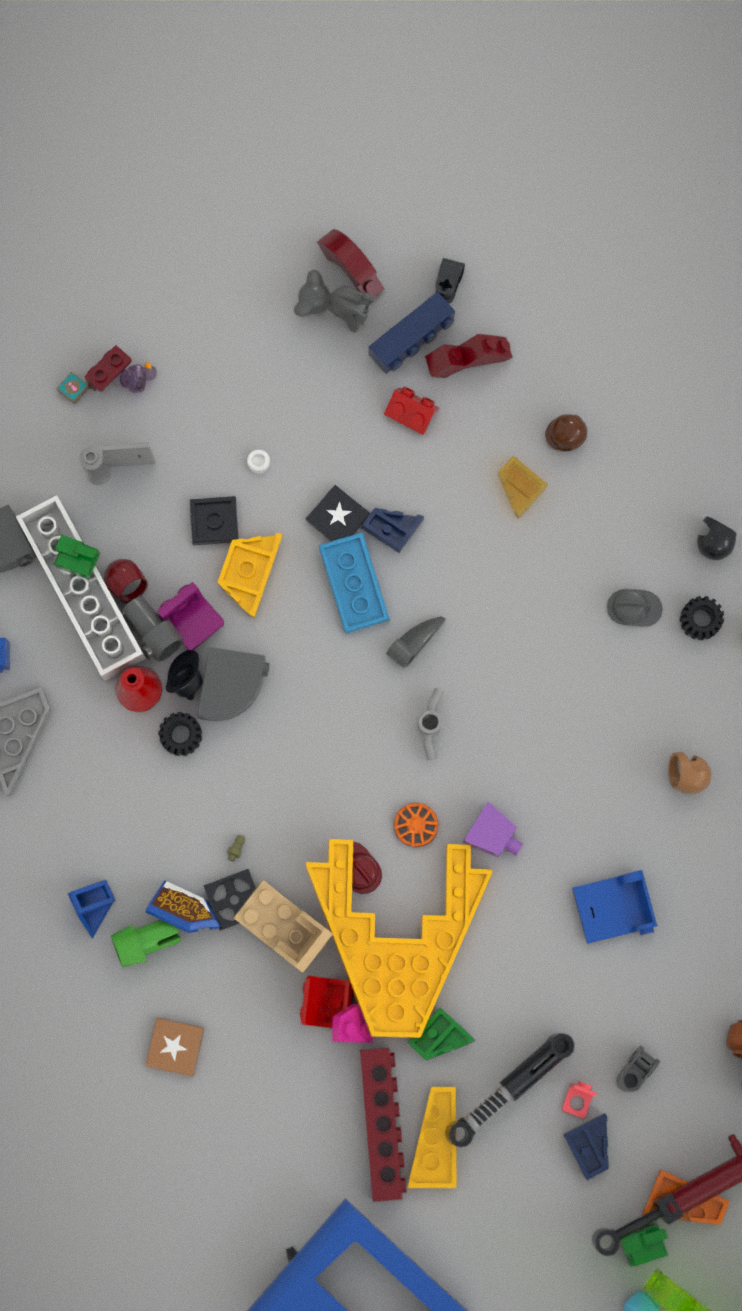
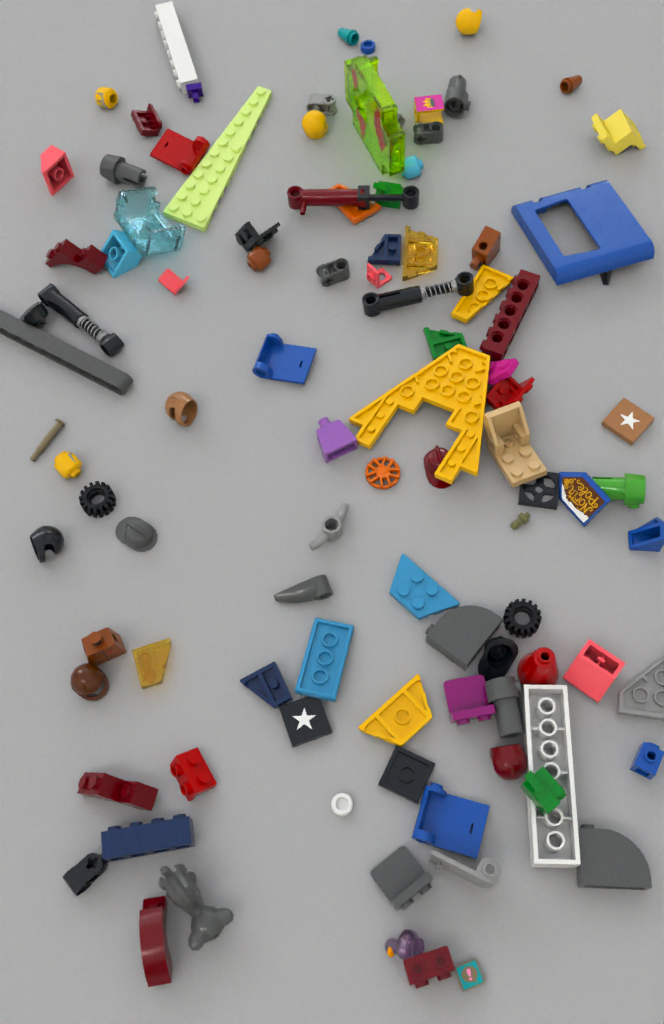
camera: 145 degrees left, 15 degrees down
(83, 714) = (593, 670): none -> coral slope
(154, 499) = (447, 822): none -> blue door
(168, 427) = (401, 878): none -> dark grey bracket
(300, 707) = (418, 591): none -> dark azure wing
(464, 1220) = (485, 248): none -> dark orange torso
(547, 1164) = (419, 254): none -> clear yellow wing
(578, 469) = (103, 646): none -> dark orange torso

